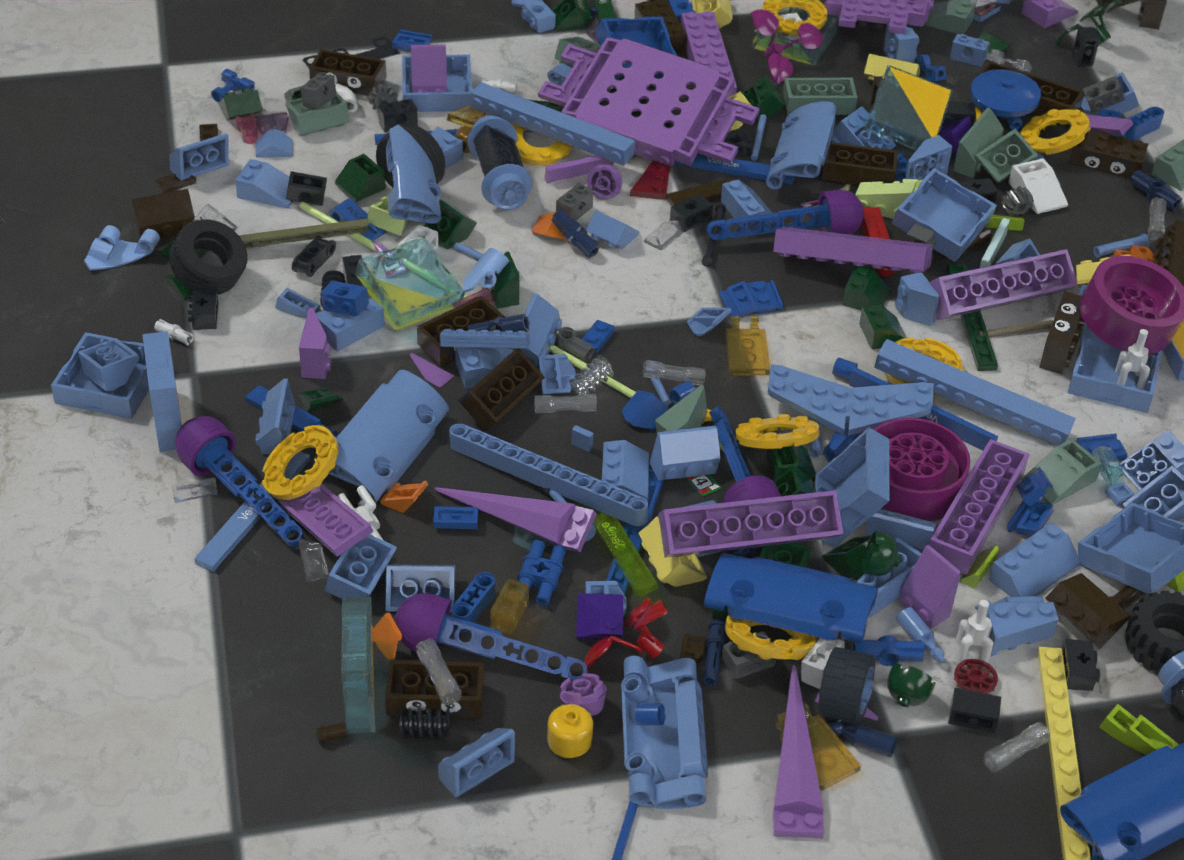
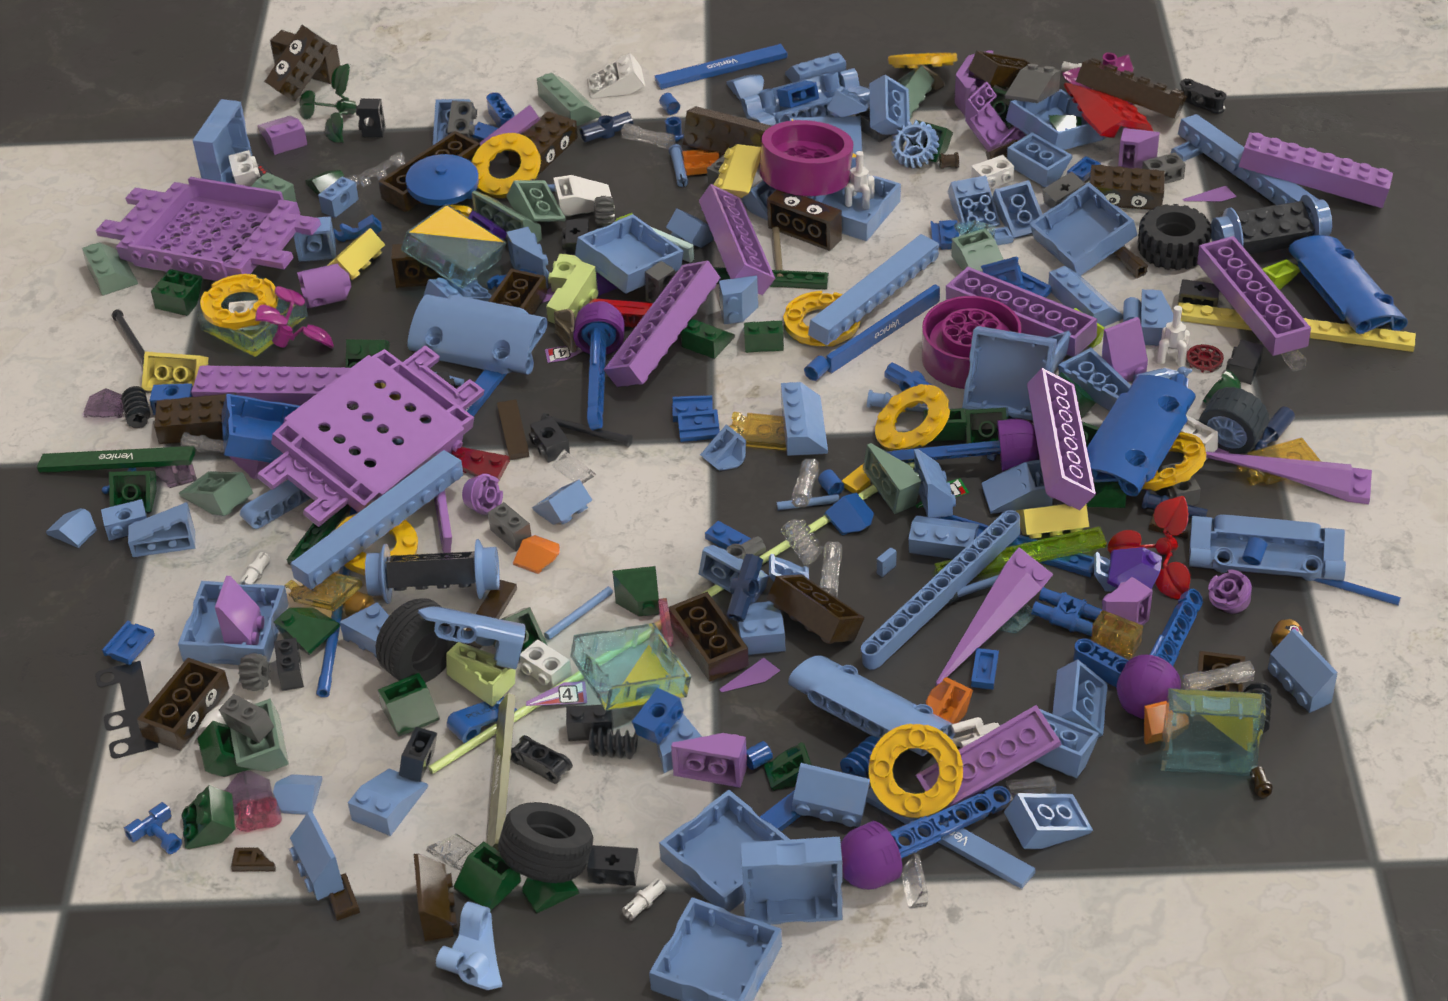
camera: 75 degrees left, 0 degrees up
(108, 363) = (718, 942): medium blue slope -> none
(222, 369) = (709, 849): none -> medium blue tile
(269, 570) = (1046, 819): none -> medium blue slope
(288, 300) = (617, 784): medium blue slope -> none
(331, 378) = (758, 755): none -> blue beam
(434, 113) = (307, 626): none -> dark green slope
(482, 211) = (495, 603): none -> dark brown tile
(483, 271) = (624, 599): light blue panel -> none
(484, 339) = (759, 601): medium blue piece -> none
(525, 34) = (163, 532): none -> medium blue wedge
(534, 748) = (1282, 629): none -> pearl gold head
(546, 609) = (1130, 601): none -> medium lavender slope
(570, 731) = (1268, 606): yellow head -> none
(575, 233) = (566, 529): dark blue piece -> none
(743, 201) = (550, 398): medium blue slope -> none
(751, 359) = (802, 420): none -> medium blue slope
(803, 91) = (384, 311): sand green brick -> none
(836, 404) = (884, 371): medium blue wing -> none
(840, 57) = (324, 285): none -> medium lavender cylinder
(881, 554) = (1095, 370): dark green cylinder -> none
(1072, 697) = (1254, 296): none -> medium lavender brick
(1088, 609) = (1147, 272): dark brown slope -> none

